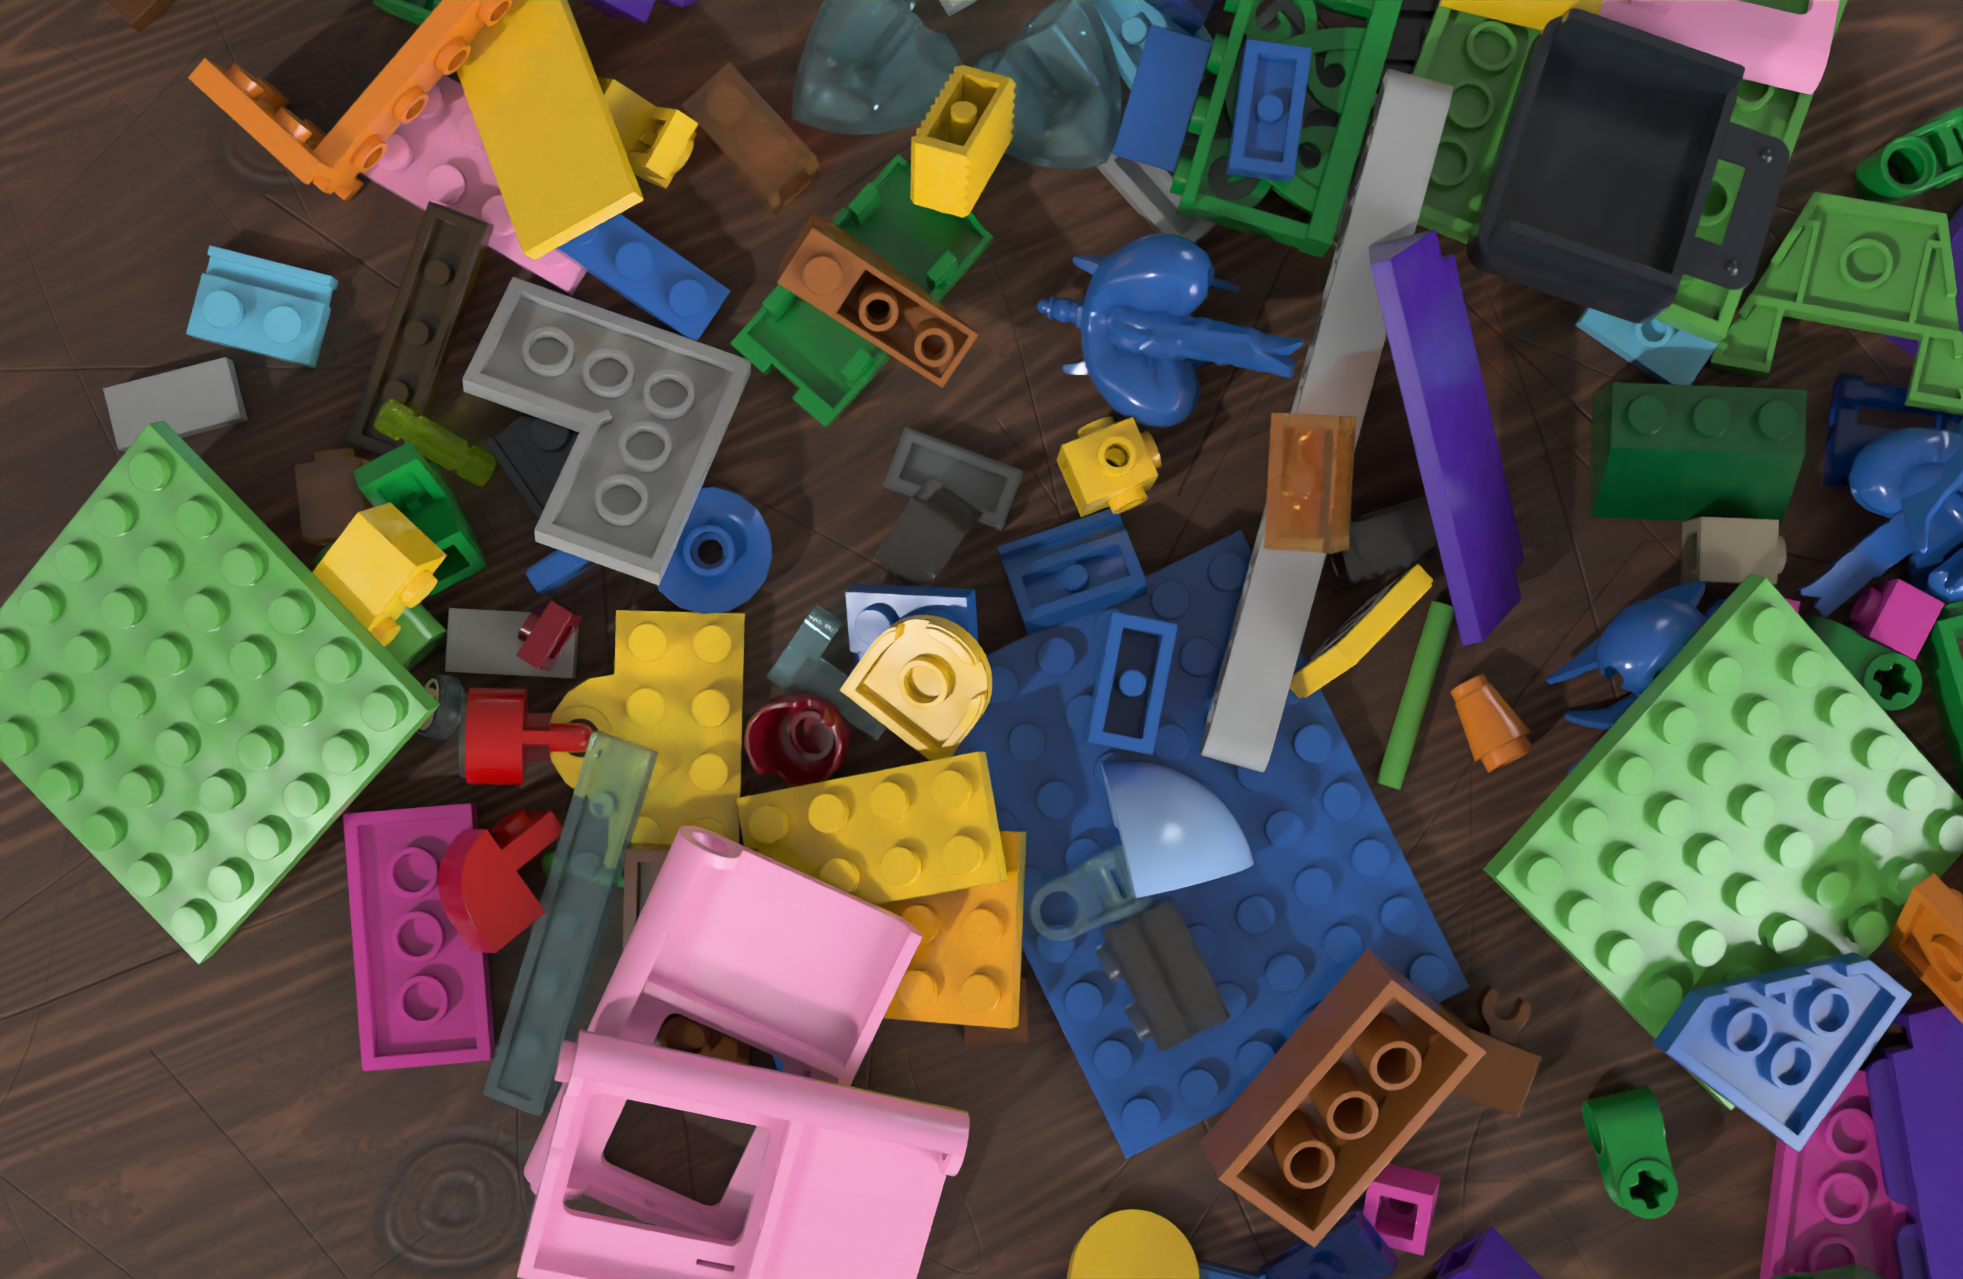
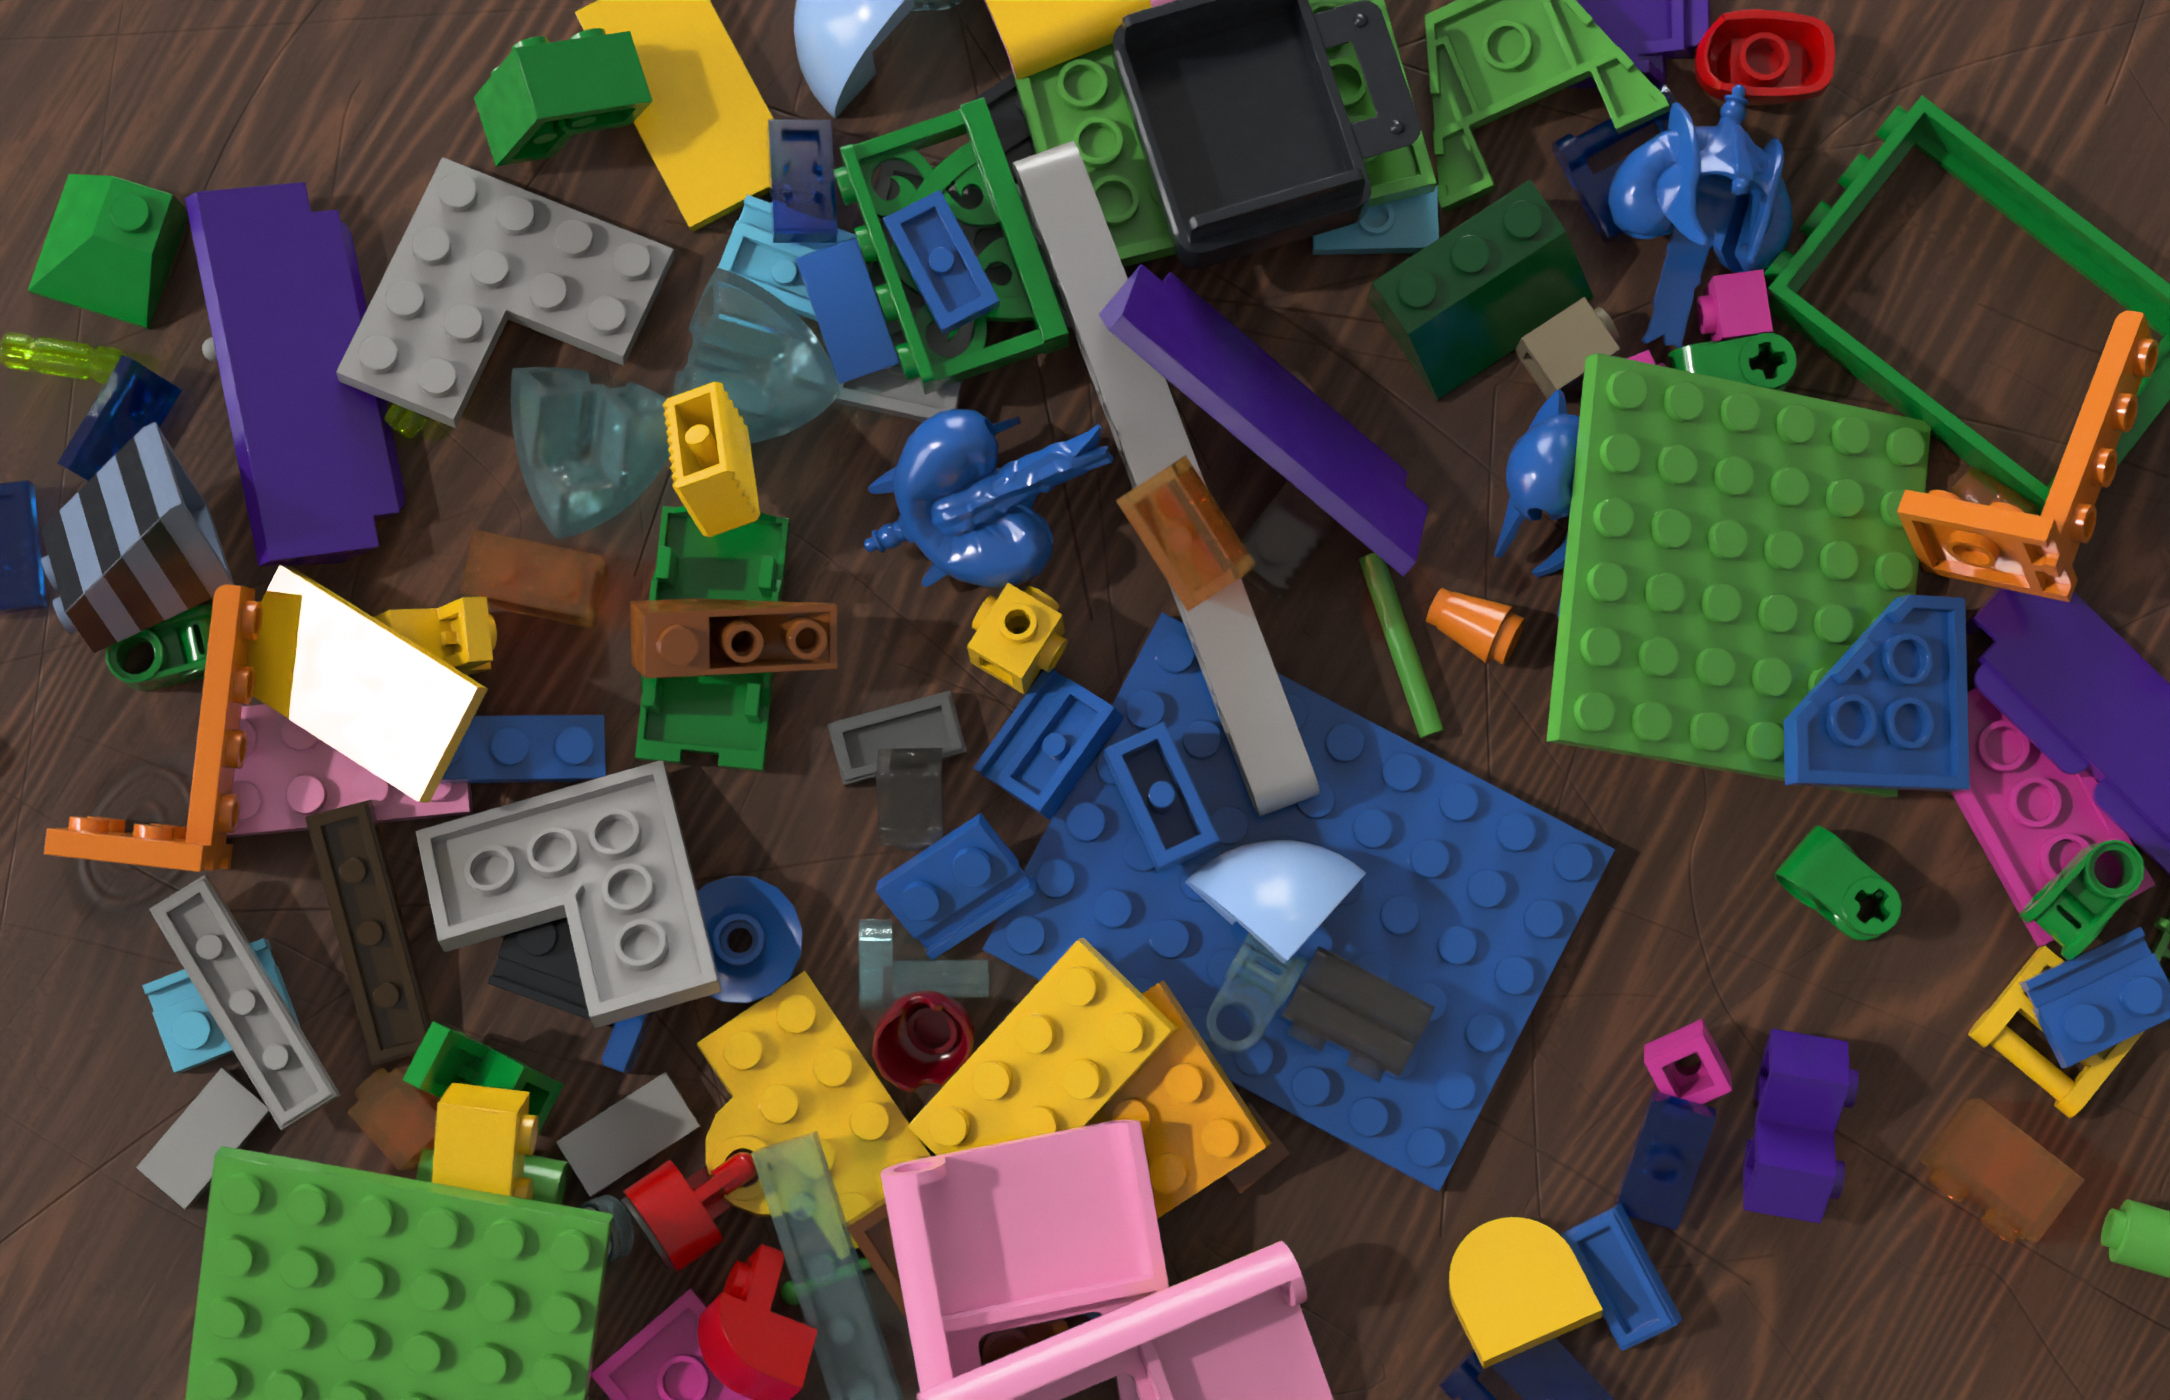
camera: 35 degrees left, 5 degrees down
(277, 317) = (245, 1002): none -> light grey tile
(435, 442) = (452, 1011): clear neon green axle -> none
(547, 634) = (655, 1101): dark red plate -> none
(924, 683) = (993, 918): yellow tile -> none
(1340, 1098) = (1572, 1011): dark orange brick -> none
(1360, 631) = (1315, 624): yellow tile -> none
(1506, 1069) = (1674, 899): reddish brown brick -> none

